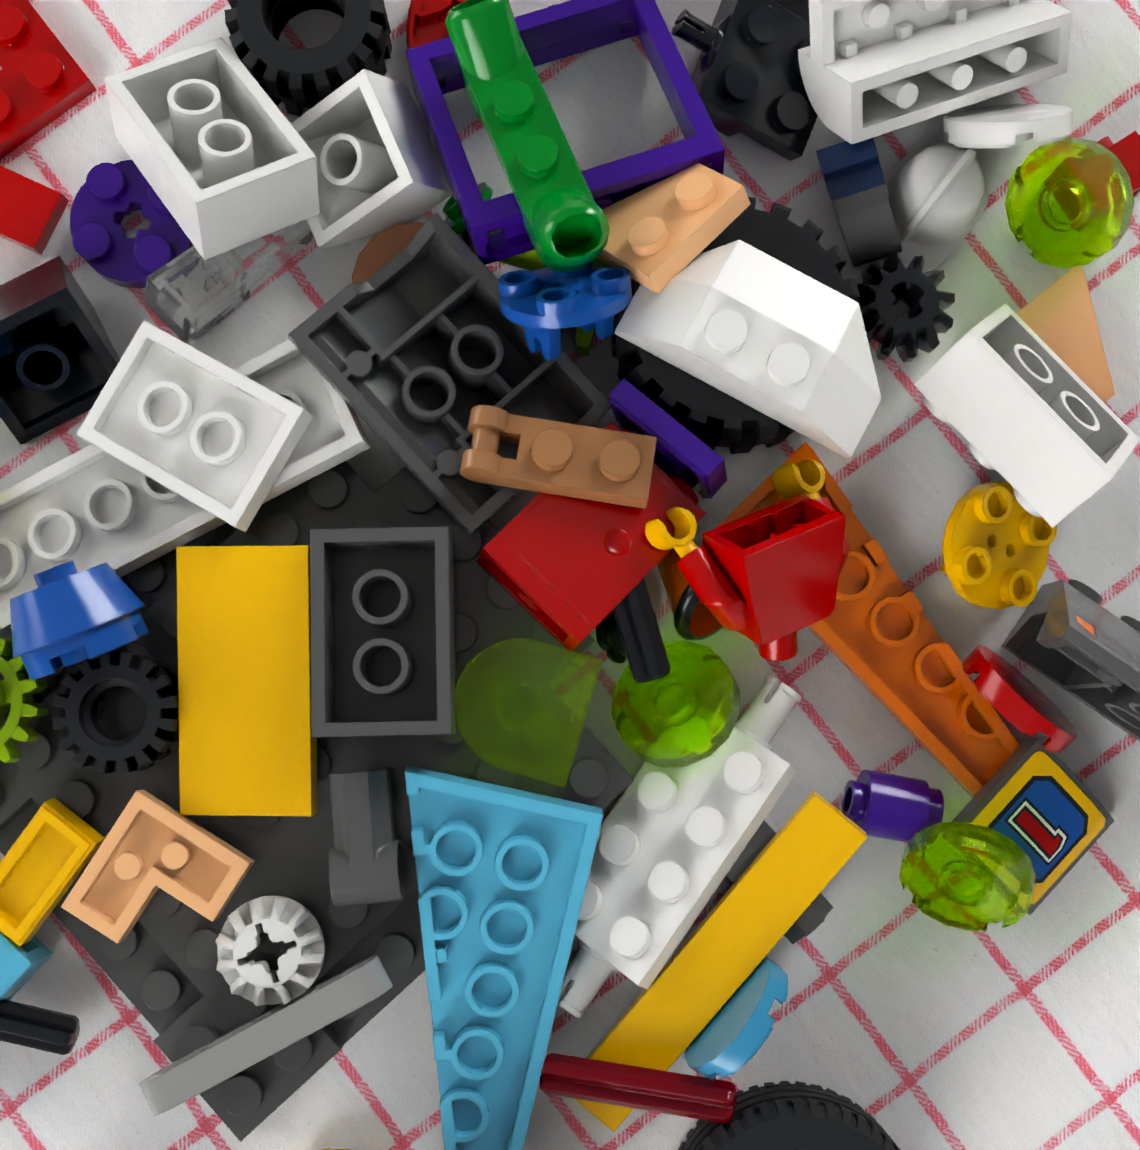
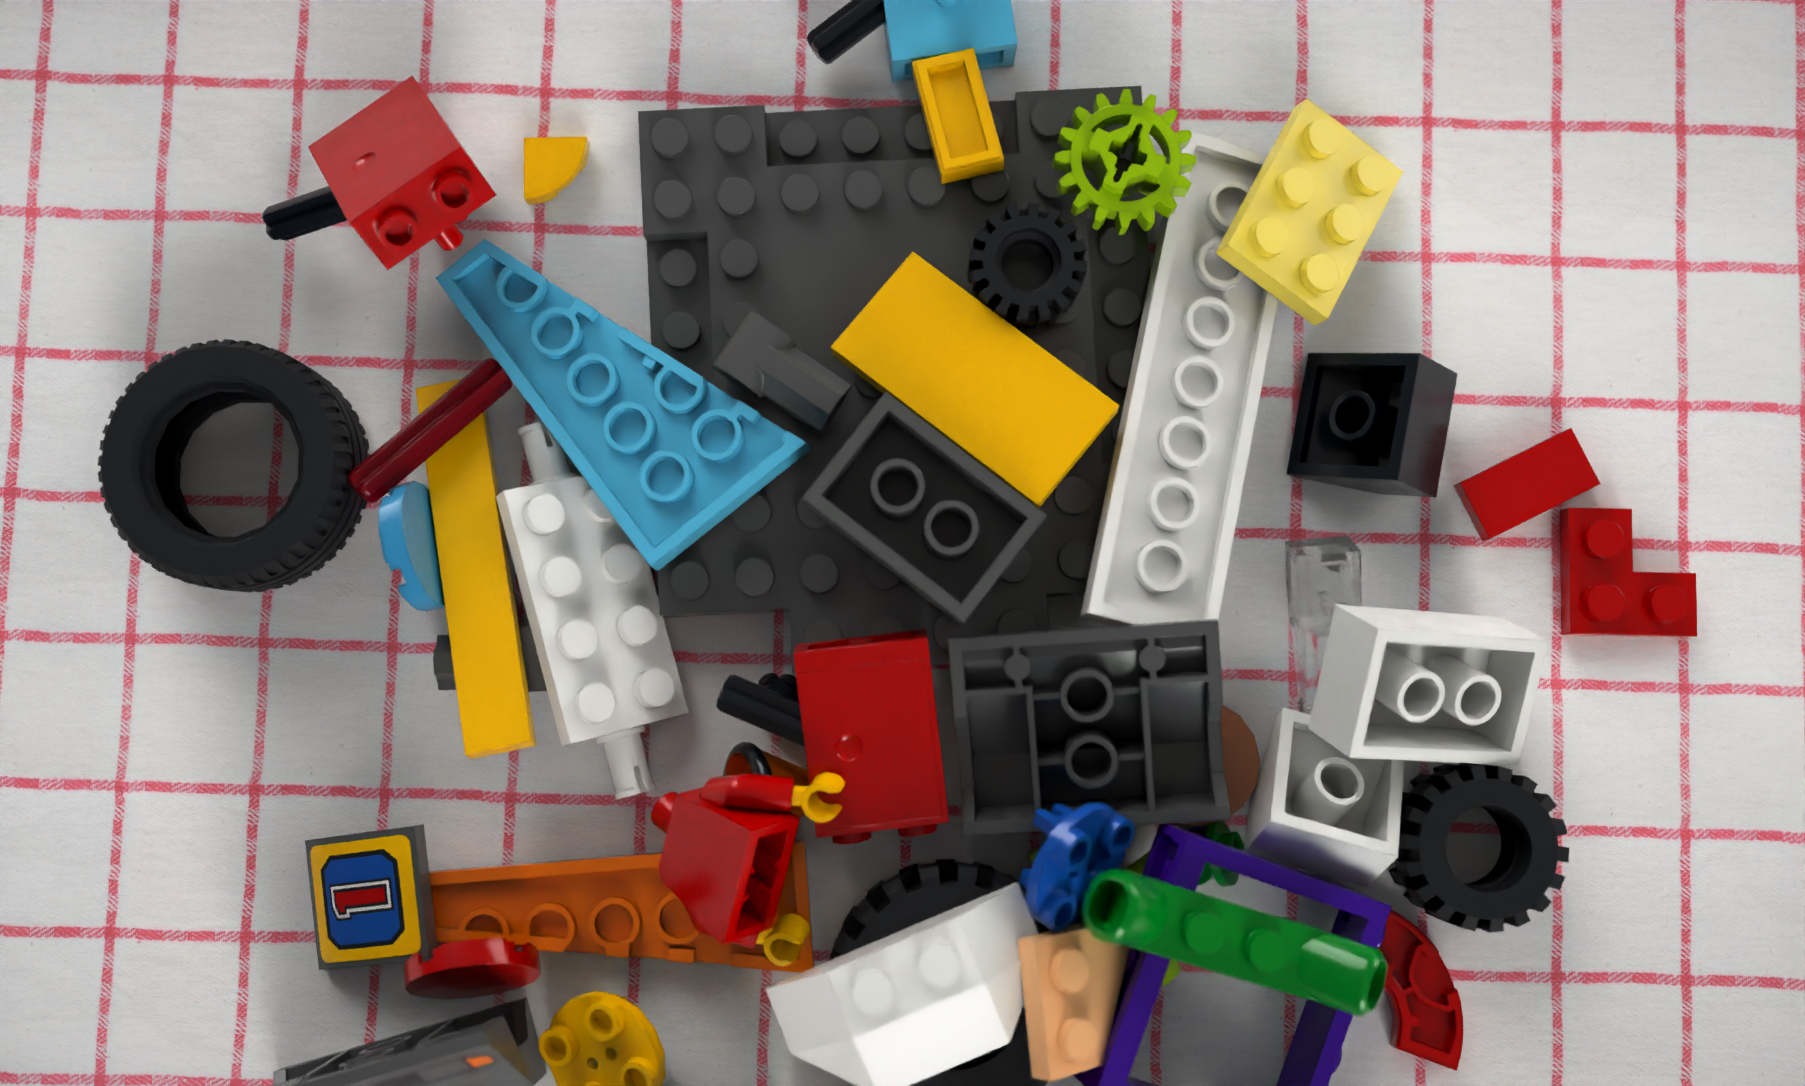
camera: 130 degrees right, 0 degrees up
(73, 617) = (1123, 286): blue cone -> none
(97, 231) = (1458, 566): dark purple plate -> none
(149, 851) = (902, 211): light nougat plate -> none
(195, 425) = (1203, 492): white plate -> none
(265, 1035) = (696, 190): light grey beam -> none
(283, 921) = (770, 265): white gear -> none
(526, 706) = (782, 576): clear neon green tile -> none
(559, 458) = (949, 755): medium nougat plate -> none
(676, 449) = (899, 856): dark purple tile -> none
(681, 714) = (678, 693): clear neon green tile -> none
(892, 805) = (474, 801): dark purple brick -> none
(967, 876) = (373, 813): clear neon green tile -> none

